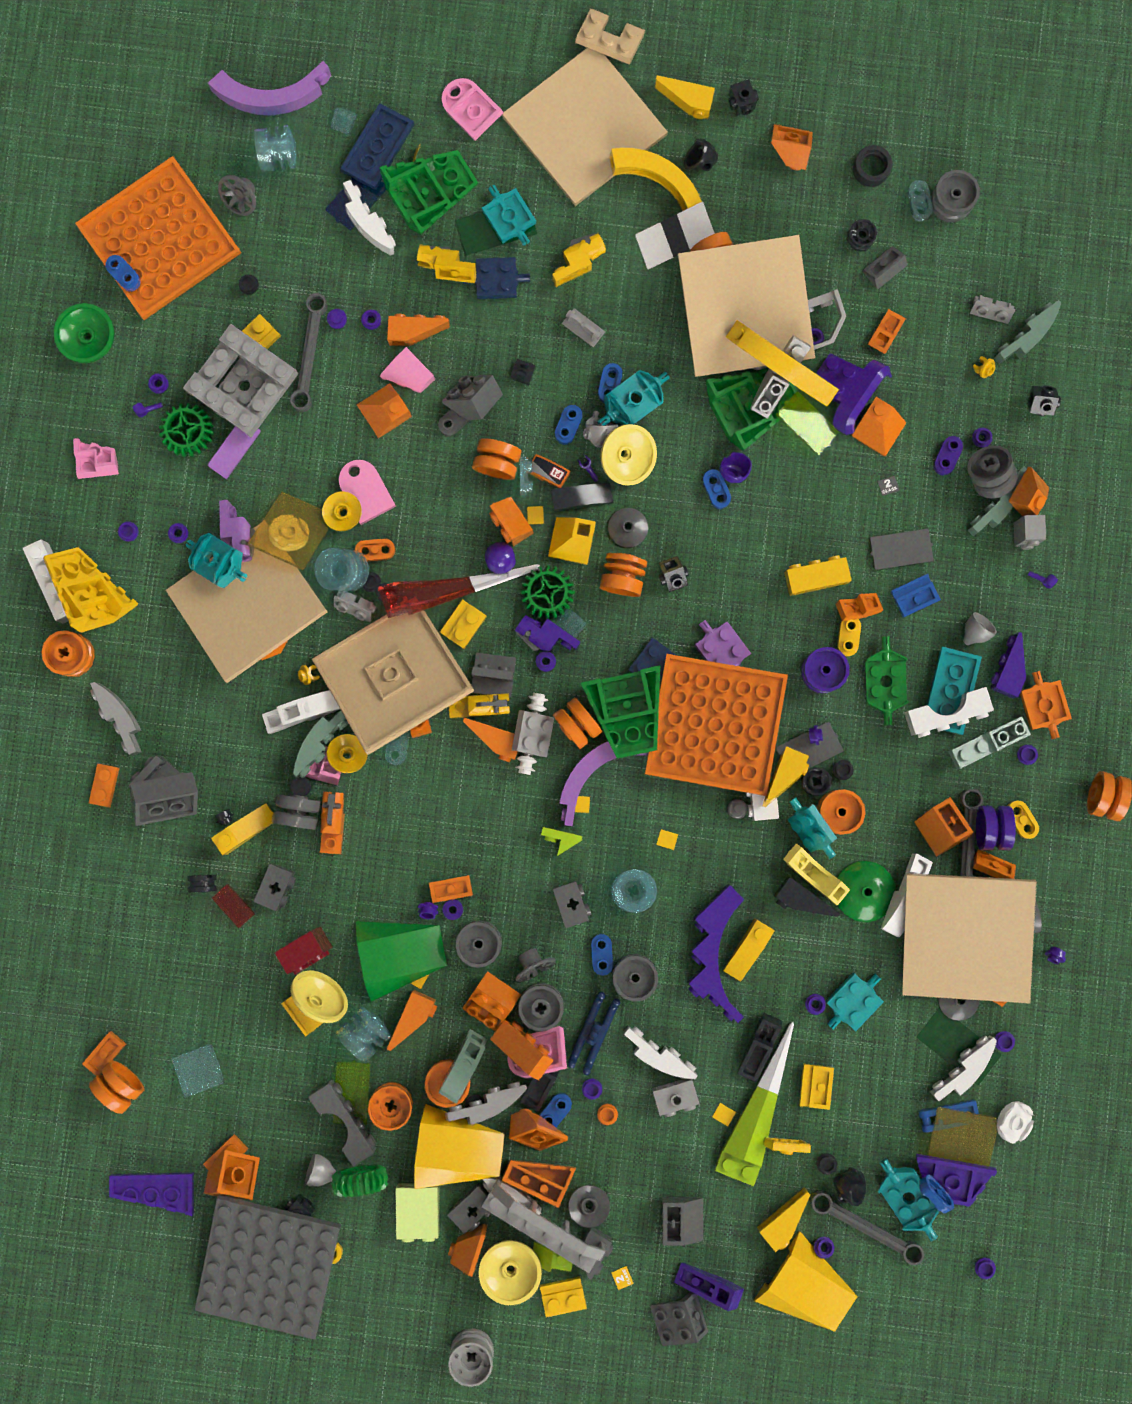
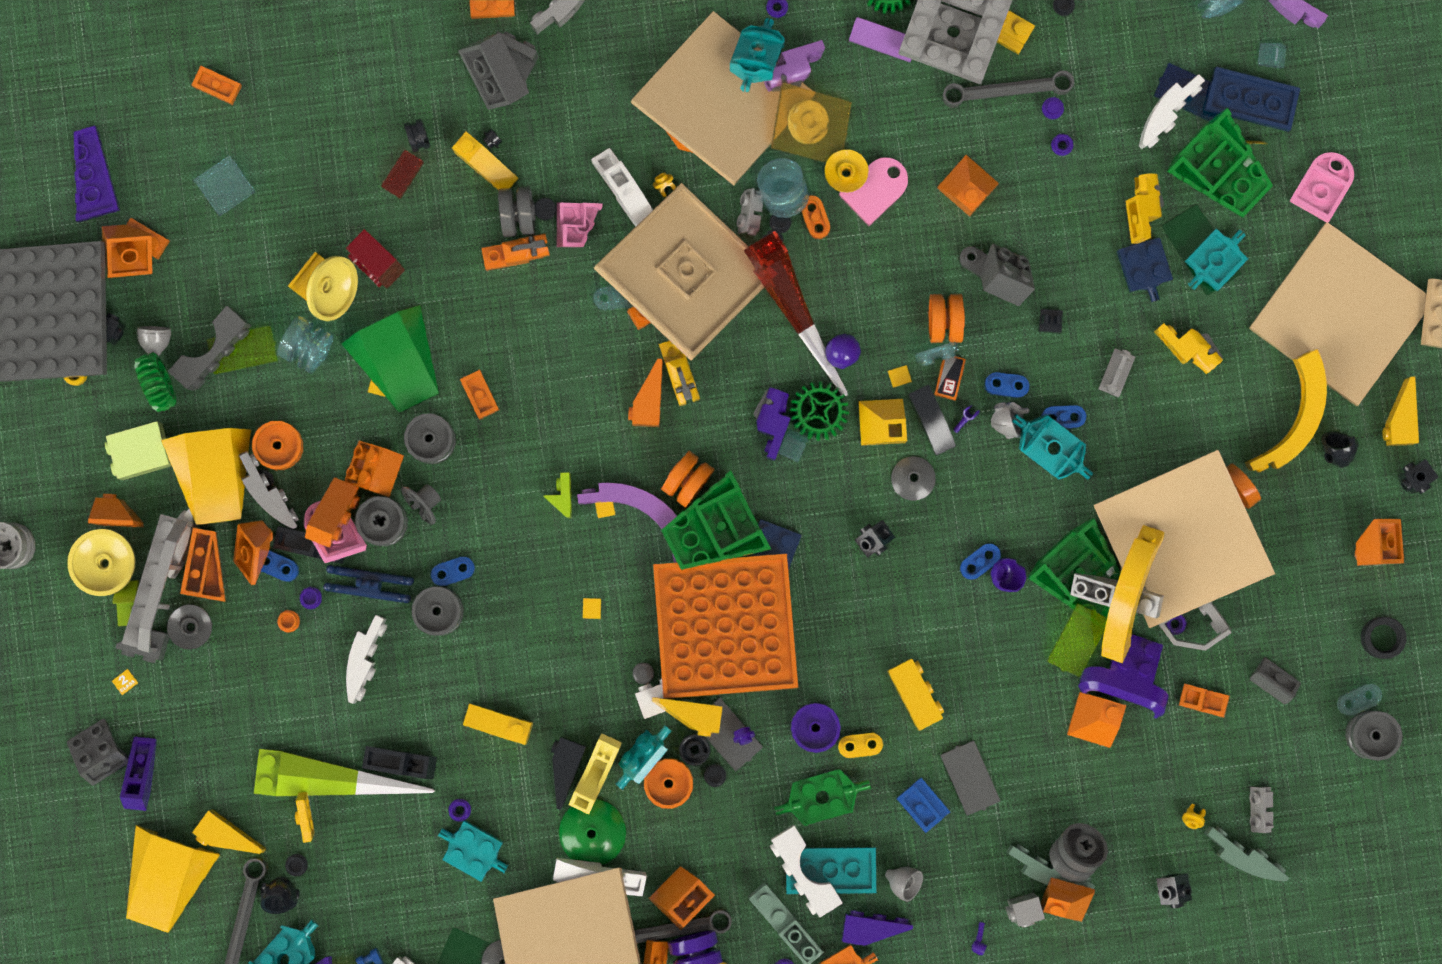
camera: 75 degrees right, 0 degrees up
(116, 1087) = (186, 107): orange wheel -> none
(266, 894) = (424, 204): dark grey brick -> none
(313, 748) = (587, 209): sand green slope -> none
(346, 744) = (595, 236): yellow dish -> none
(378, 1109) = (232, 382): orange wheel -> none
(408, 372) = (1015, 199): bright pink slope -> none
(410, 330) = (1060, 188): orange slope -> none
(414, 1015) = (341, 393): orange slope -> none
(427, 910) = (450, 376): dark purple plate -> none
(448, 904) = (465, 402): dark purple plate -> none
(460, 1211) = (147, 496): dark grey brick -> none
(463, 624) = (761, 331): yellow plate -> none
(463, 1066) = (299, 455): sand green slope -> none
(493, 674) = (716, 377): dark grey bracket -> none
(511, 520) = (885, 351): orange slope -> none
(532, 733) = (664, 435): light grey plate -> none
(545, 668) = (745, 436): dark purple plate -> none
(563, 1296) = (90, 625): yellow plate -> none
(571, 916) = (484, 525): dark grey brick -> none
(623, 569) = (859, 485): orange wheel -> none
(638, 457) = (985, 468): light yellow dish -> none
(643, 884) = (518, 595): clear light blue wheel -> none
(674, 235) = (1244, 443): white sticker -> none
(675, 1097) = (325, 687): light grey brick -> none
(682, 1220) = (199, 727): dark grey slope -> none
(713, 921) = (517, 678): dark purple arch -> none
(721, 645) = (812, 612): medium lavender plate -> none
(724, 1114) = (319, 744): yellow sticker -> none
(816, 1086) = (374, 833): yellow plate -> none
(829, 1247) = (209, 890): dark purple plate -> none
(861, 607) = (893, 748): orange slope -> none
(867, 229) = (1309, 653): black wheel -> none
(888, 485) = (1035, 746): dark grey sticker -> none
(948, 454) = (1086, 802): dark purple plate -> none
(986, 433) = (1123, 834): dark purple plate -> none

